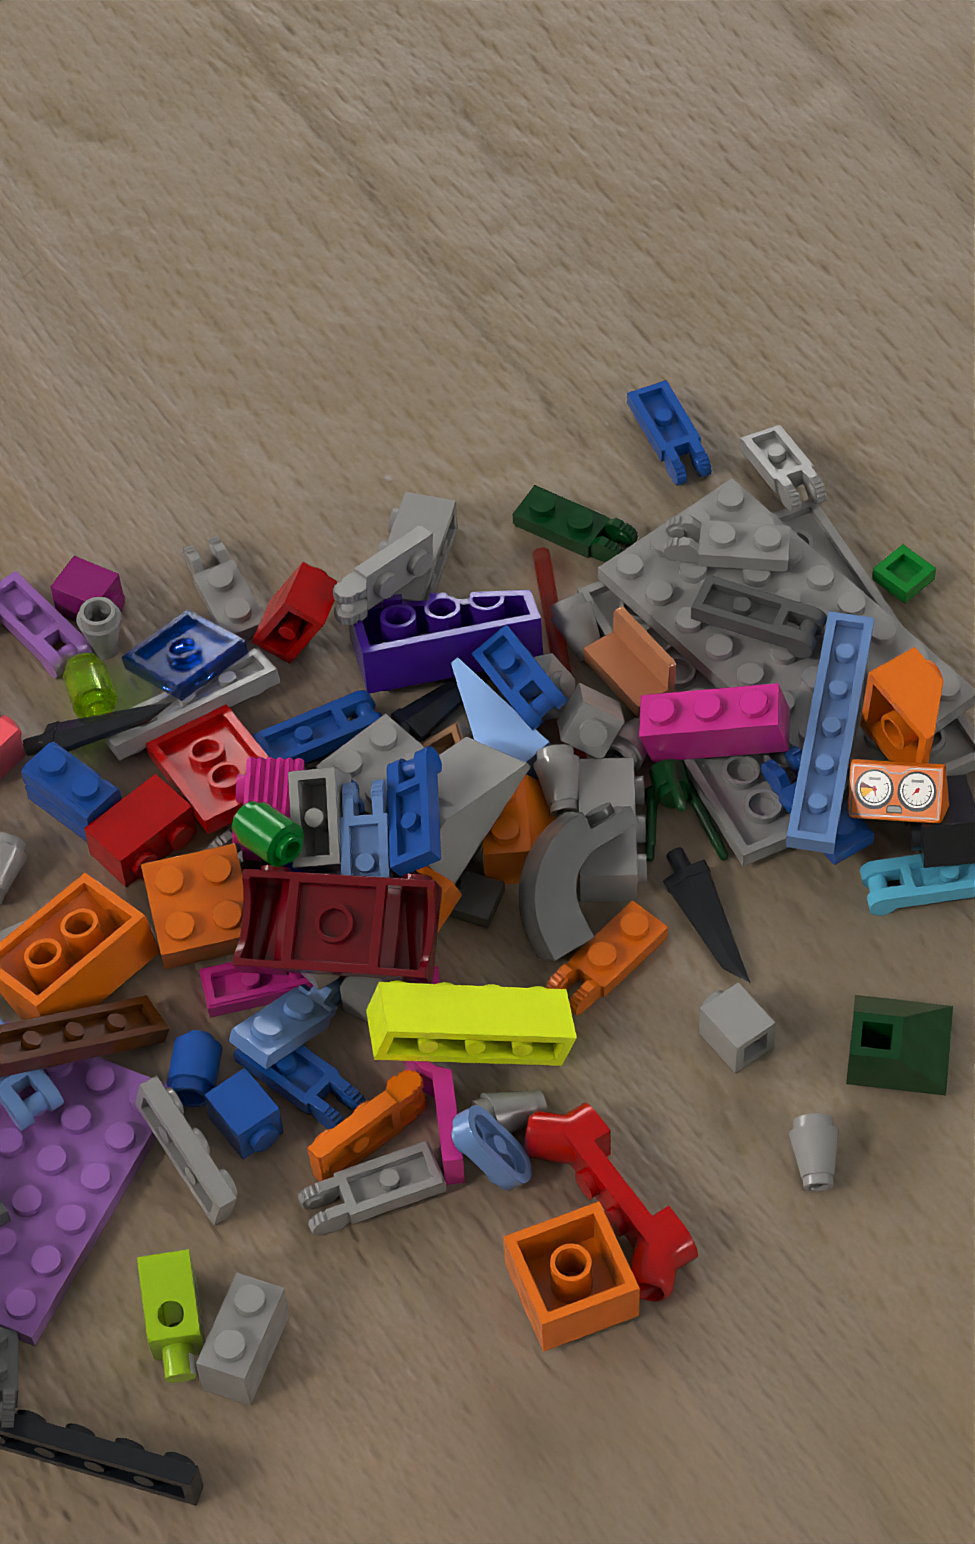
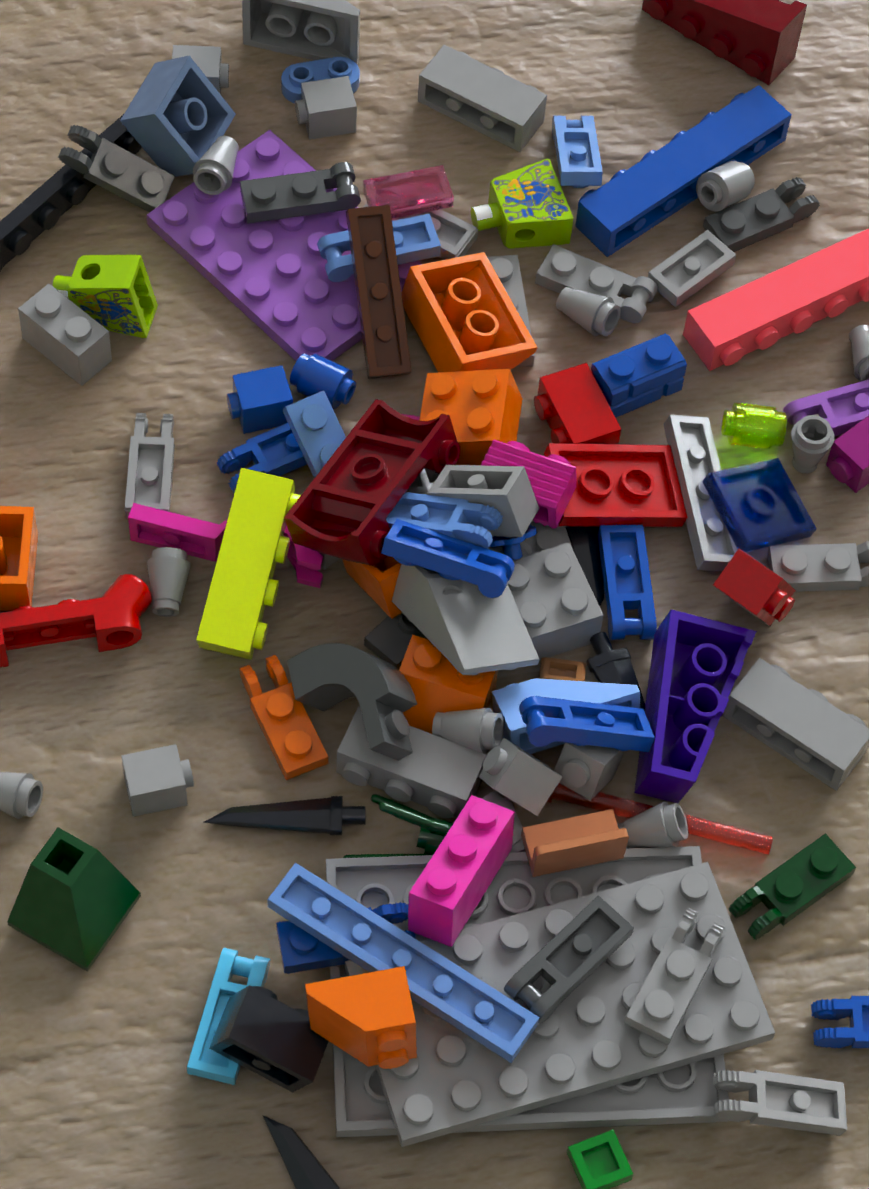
camera: 105 degrees right, 5 degrees up
(87, 730) = (701, 401): black bar -> none
(186, 1149) = (242, 342): light grey plate -> none
(268, 833) = (474, 441): green brick -> none
(368, 1126) = (206, 480): orange hinge -> none
(383, 575) = (753, 653): light grey hinge -> none
(491, 1148) = (131, 542): medium blue plate -> none
(898, 791) = (285, 988): slope -> none

